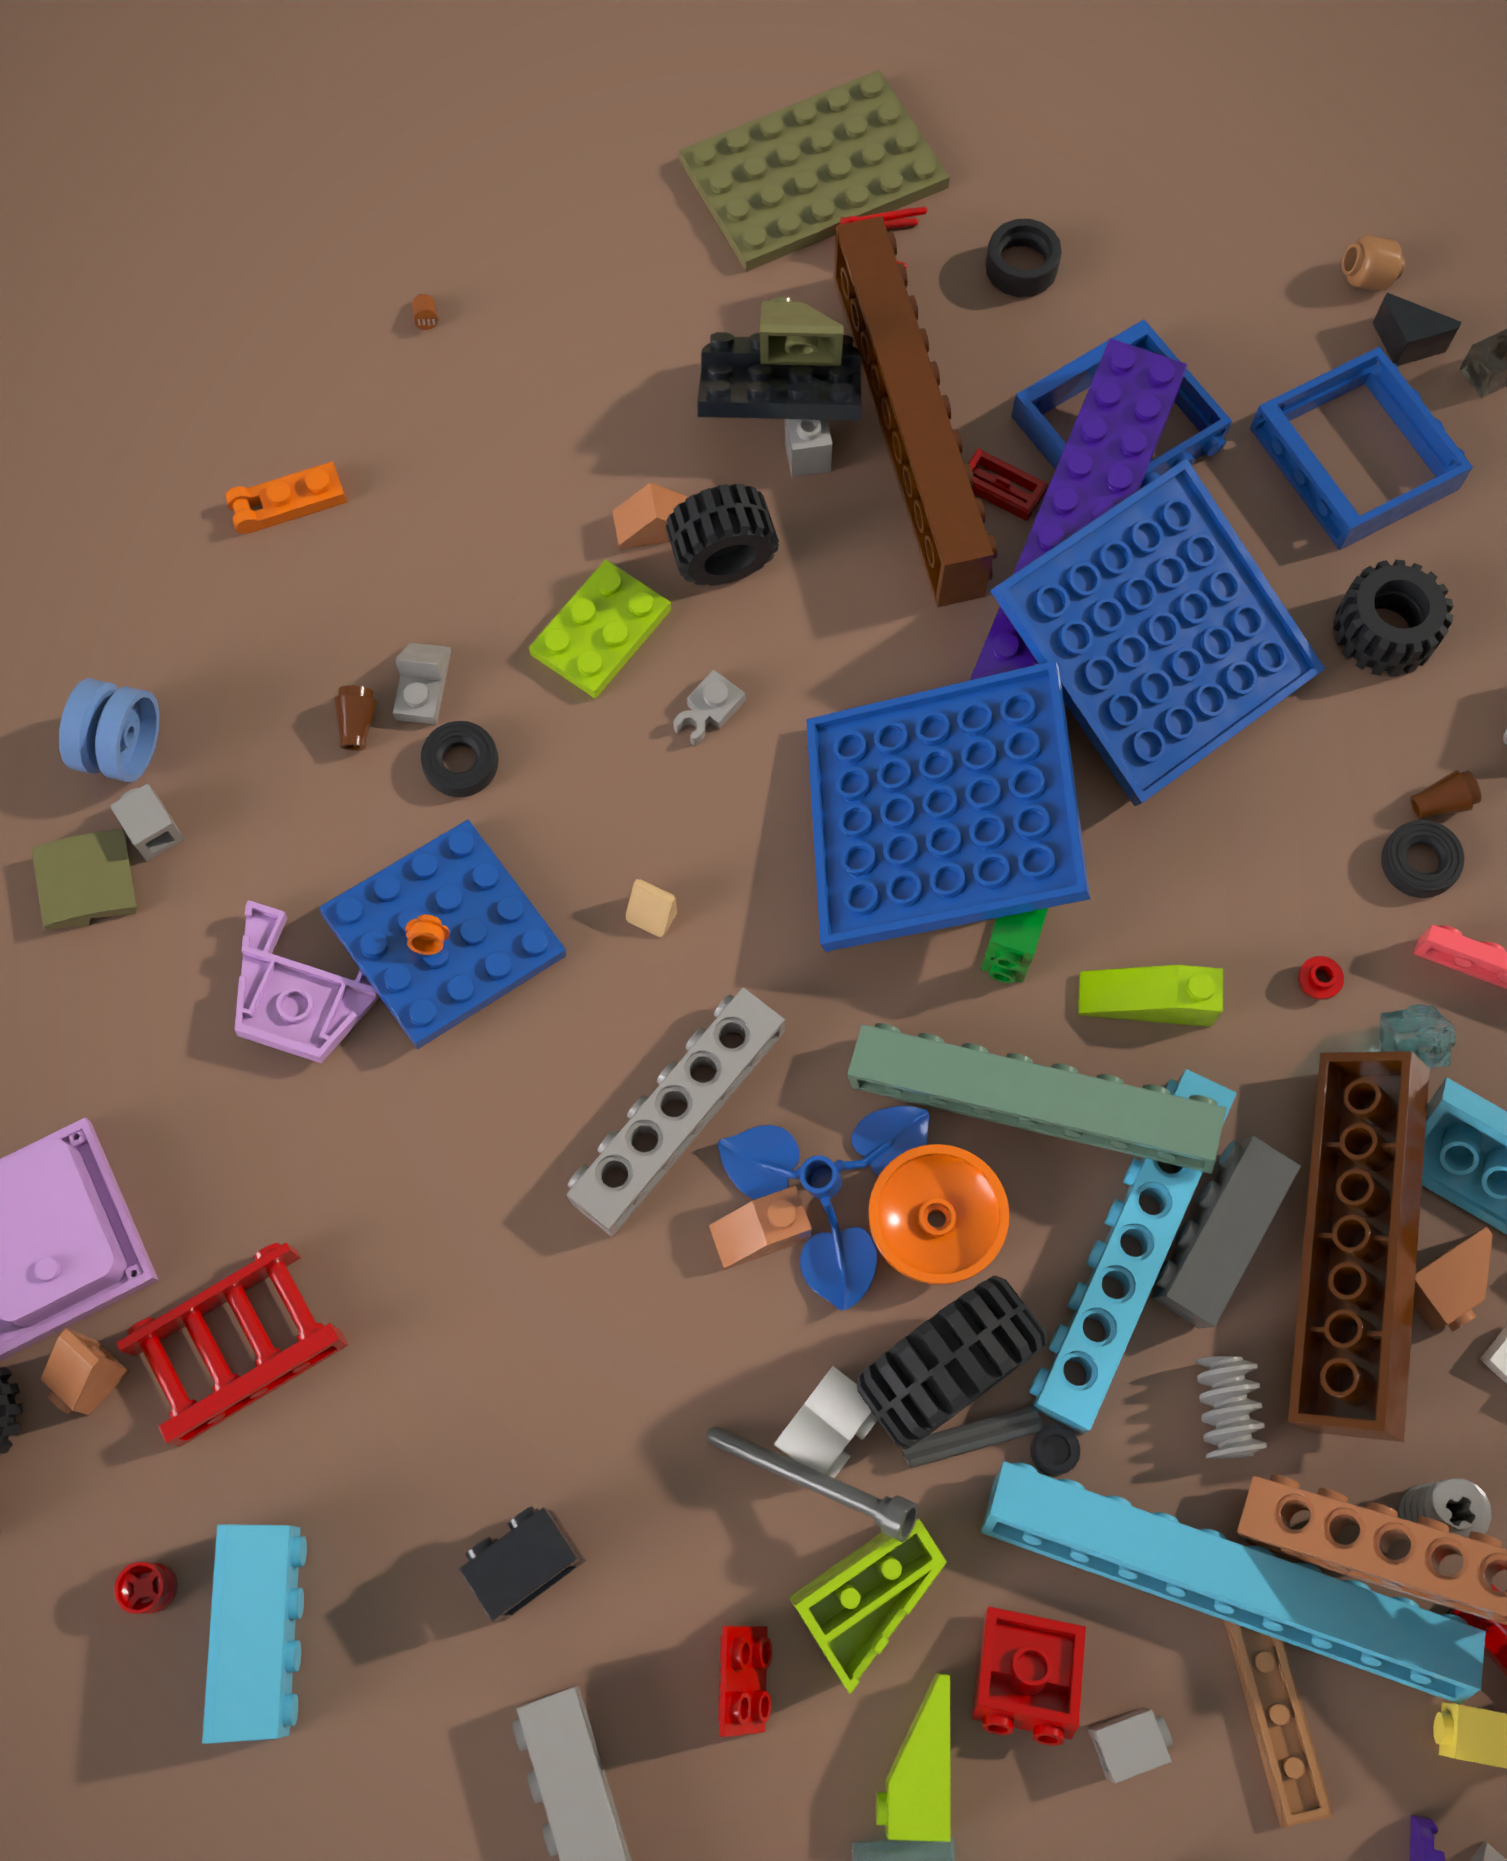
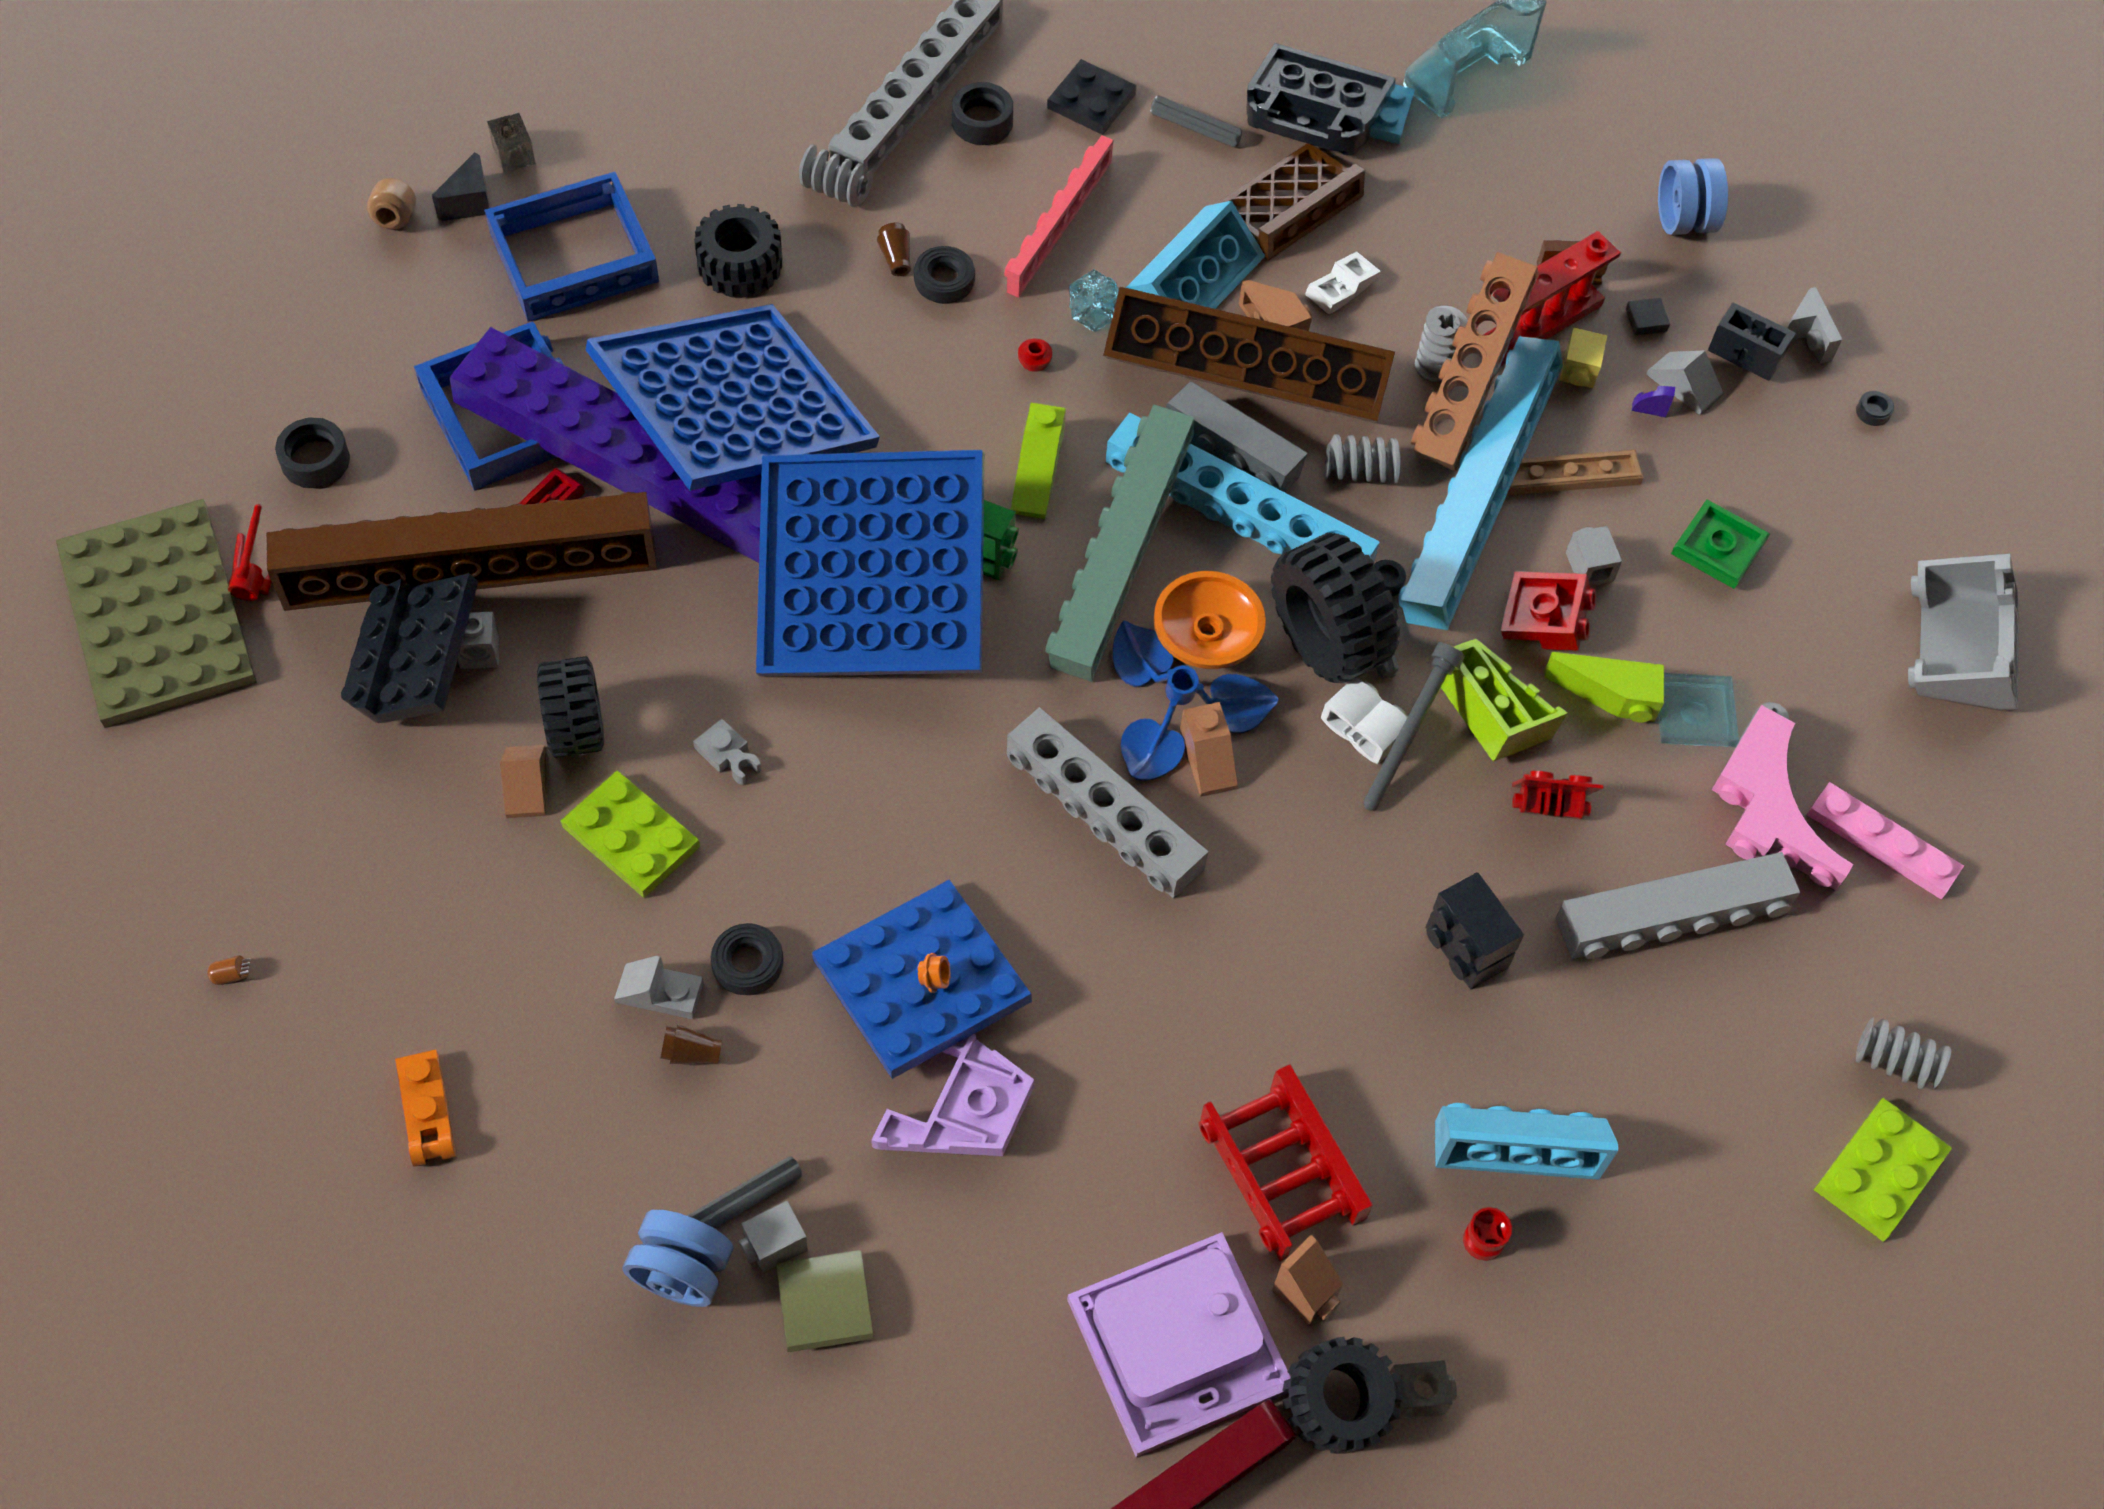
camera: 90 degrees left, 10 degrees down
(196, 791) = (749, 1193): none -> dark grey axle
(651, 908) = (918, 809): tan slope -> none
(798, 335) = (378, 614): olive slope -> none

